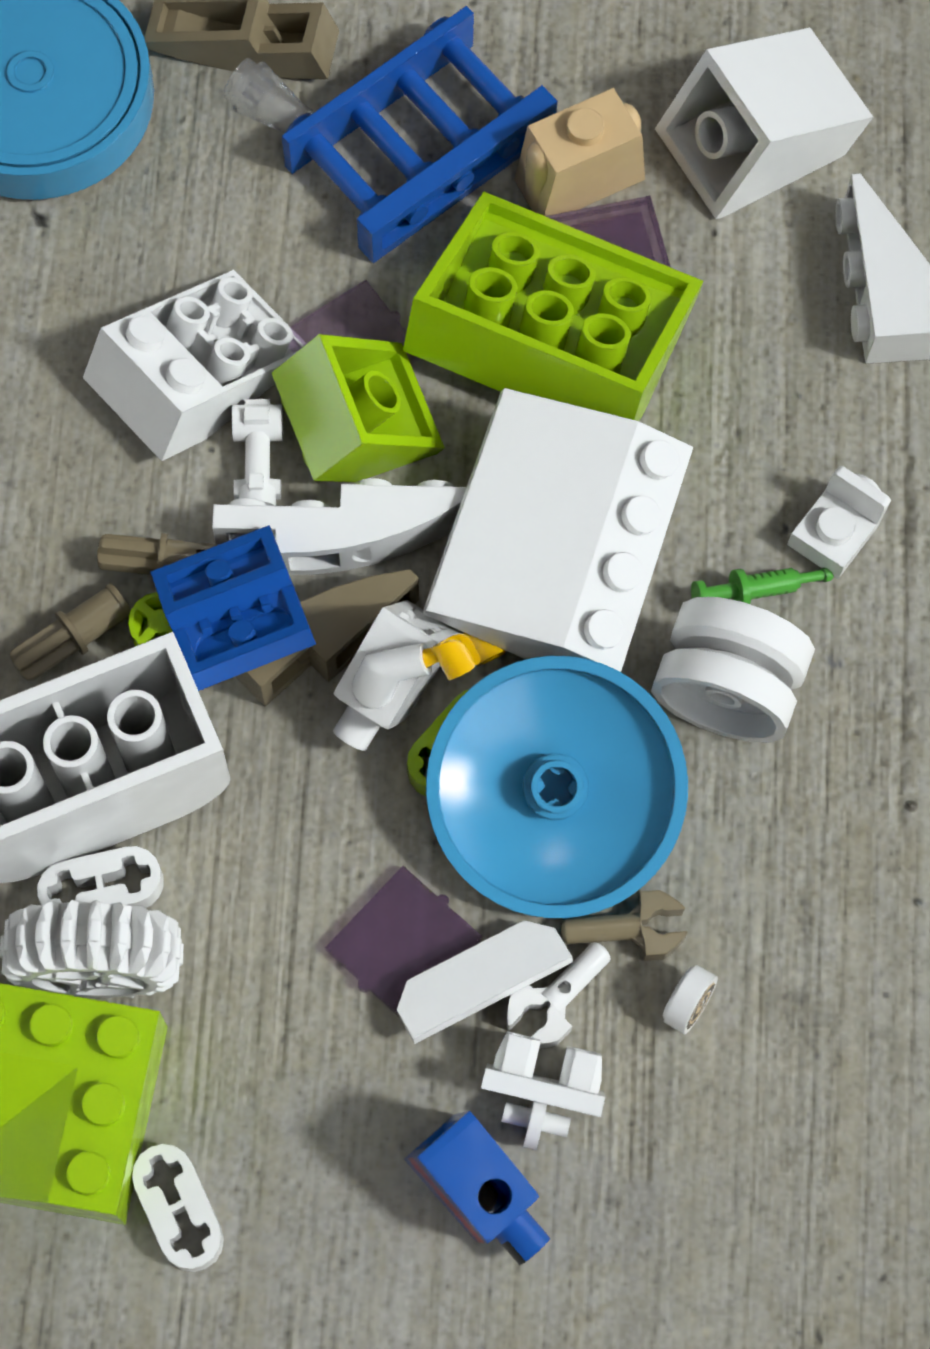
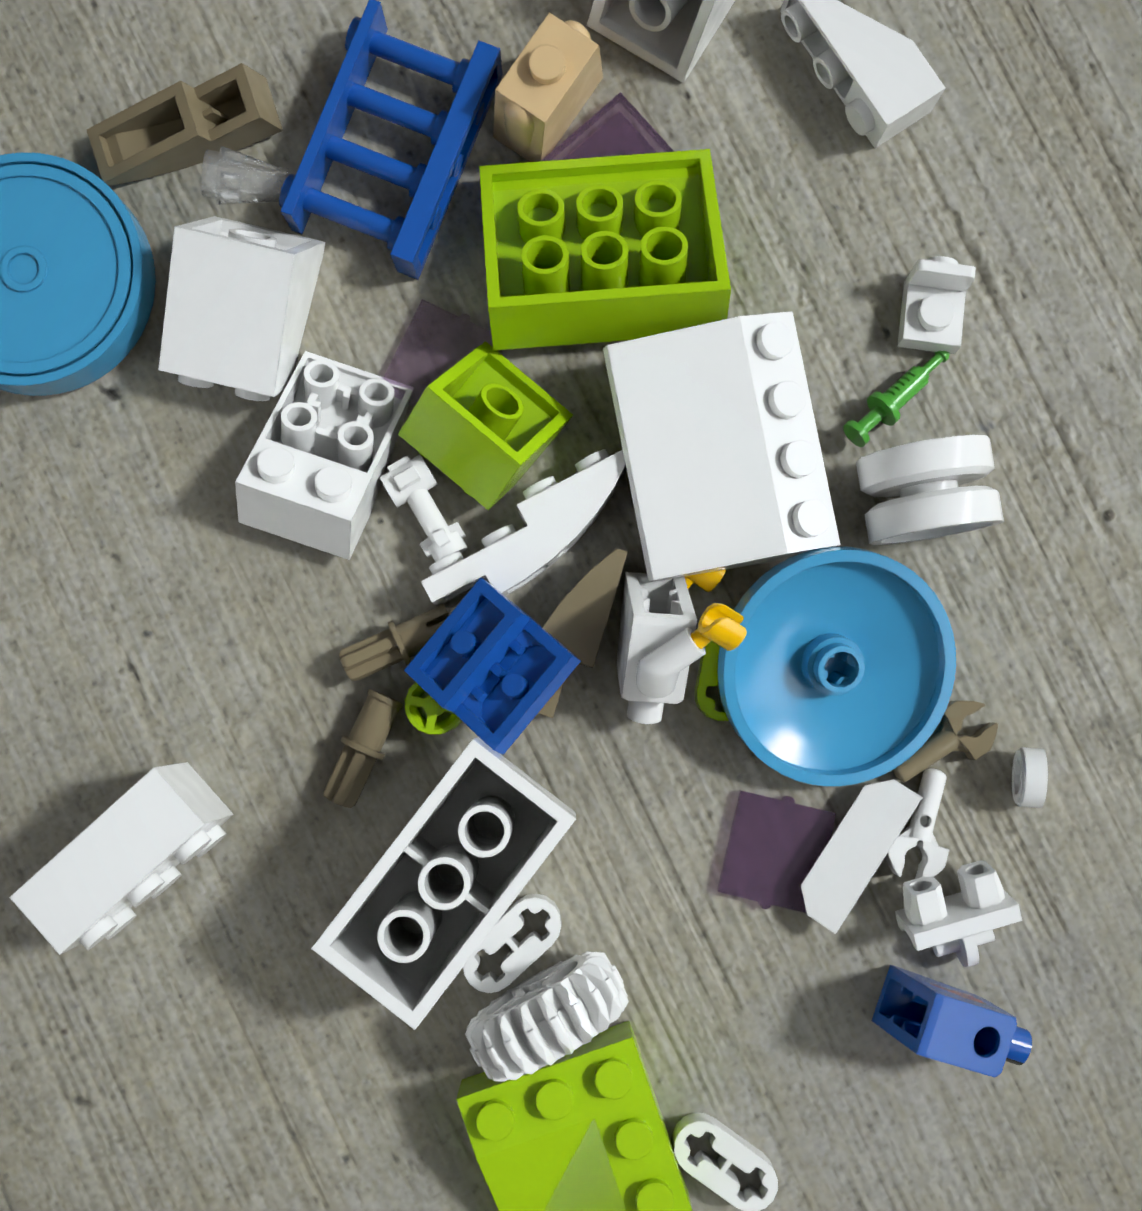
camera: 30 degrees left, 15 degrees up
(196, 197) = (237, 305): none -> white slope

